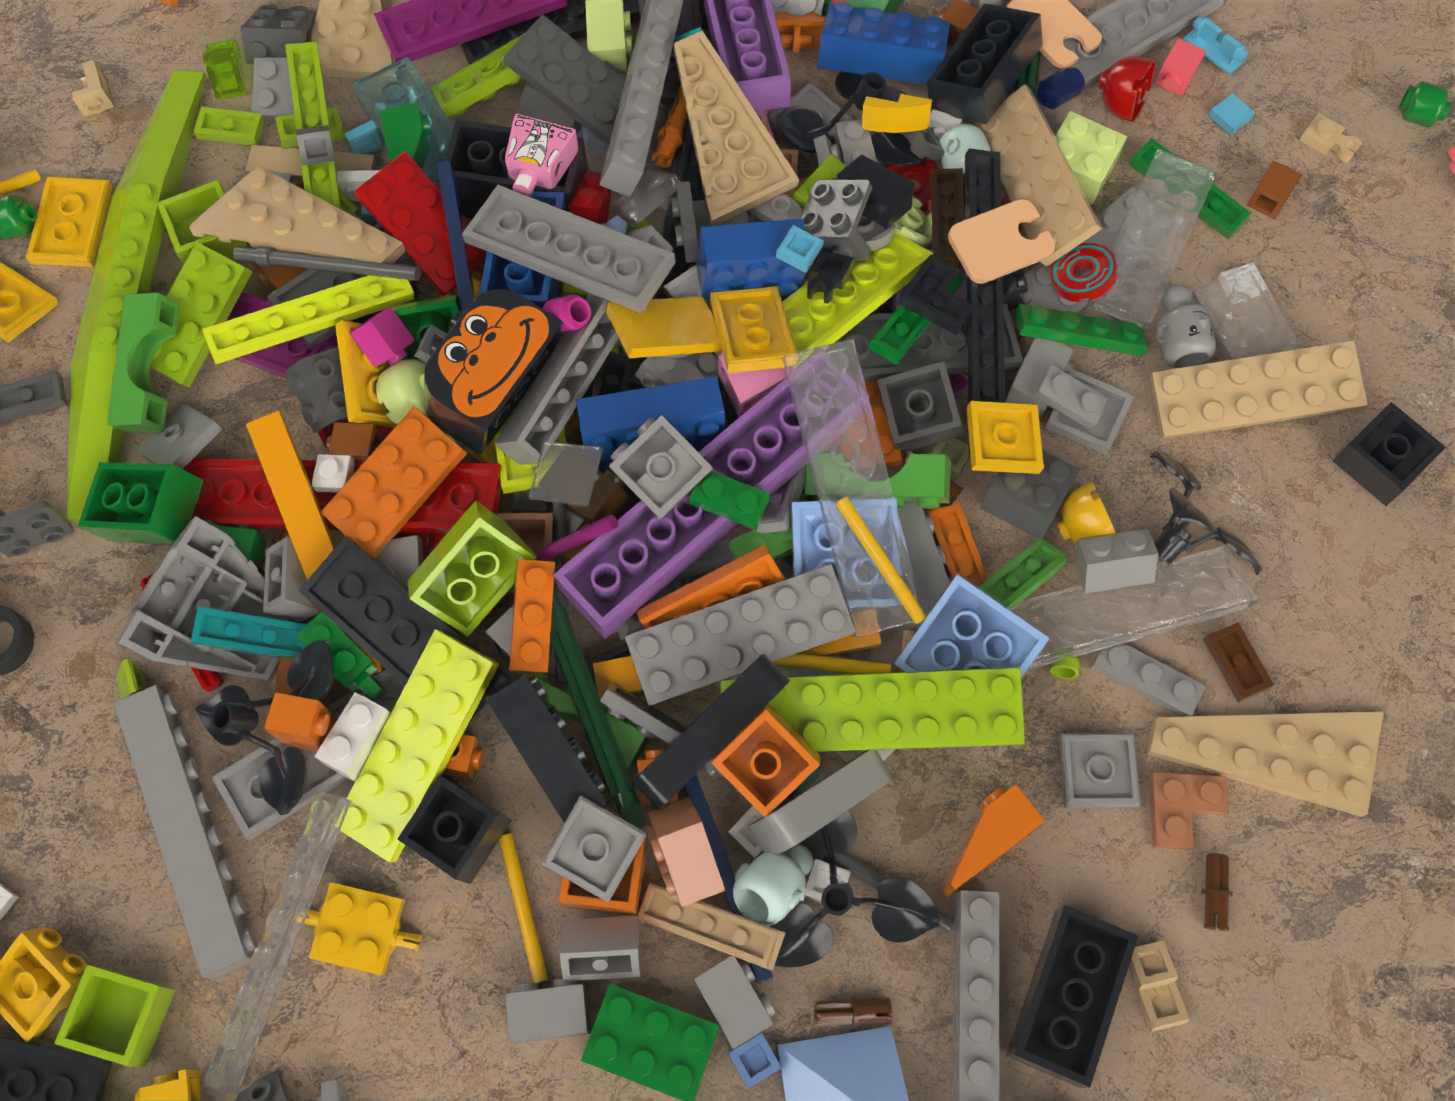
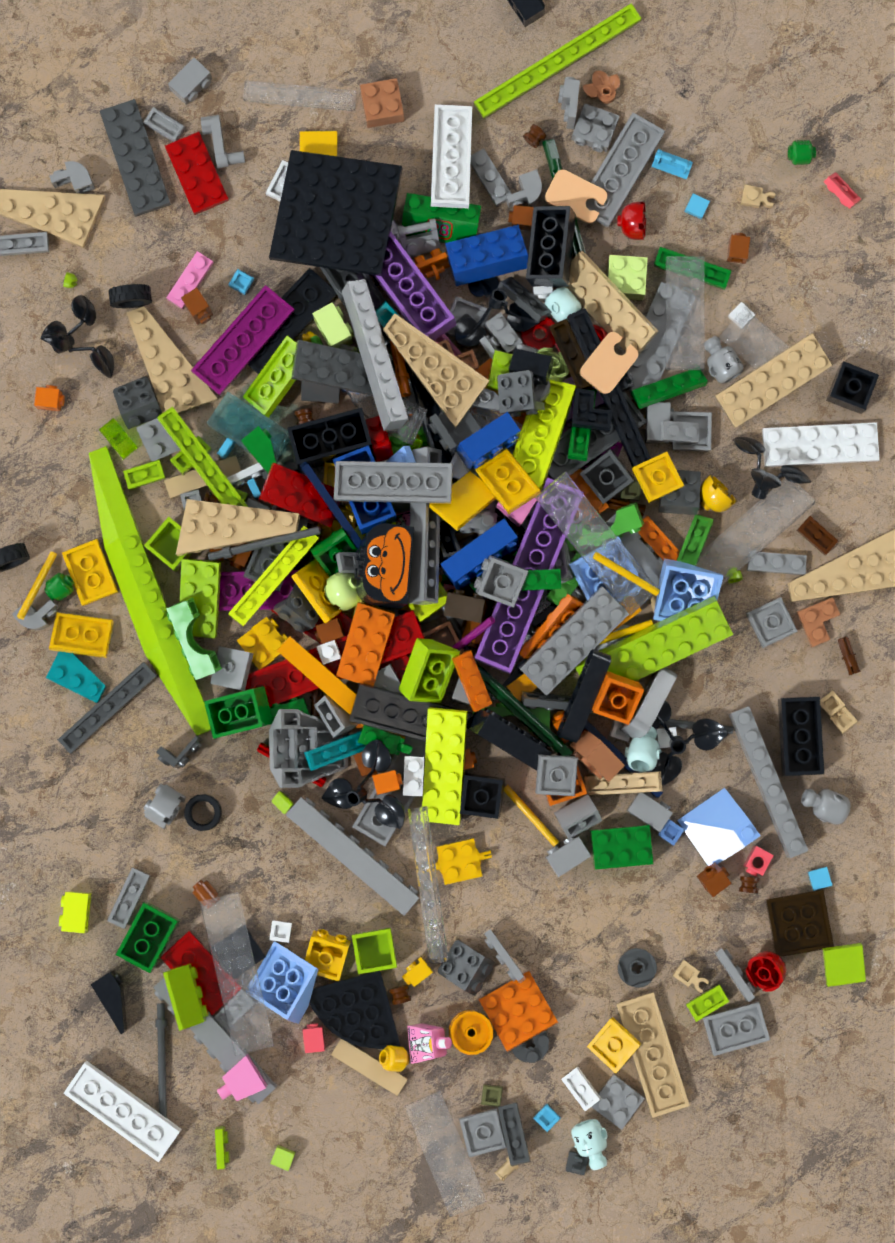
camera: 25 degrees left, 15 degrees up
(96, 92) = (53, 485): tan bracket -> none
(233, 416) = (263, 642): none -> yellow plate
(315, 145) = (214, 474): dark grey tile -> none
(383, 338) = (318, 571): dark pink brick -> none
(538, 153) = (346, 432): bright pink torso -> none
(565, 473) = (455, 604): clear piece -> none
(571, 310) = (410, 517): dark pink brick -> none
(799, 248) = (514, 431): medium azure tile -> none
(829, 272) = (530, 428): black plate -> none
(853, 1012) = (705, 789): reddish brown axle -> none
(887, 116) = (525, 304): yellow slope -> none
(1002, 824) = (734, 679): orange slope -> none
(1060, 87) = (596, 235): clear blue brick -> none
(1084, 256) = (667, 359): red tile -> none
(1116, 561) = (738, 513): light grey brick -> none
(1180, 67) = (657, 190): coral brick -> none
(1302, 524) = (820, 444): none -> white plate

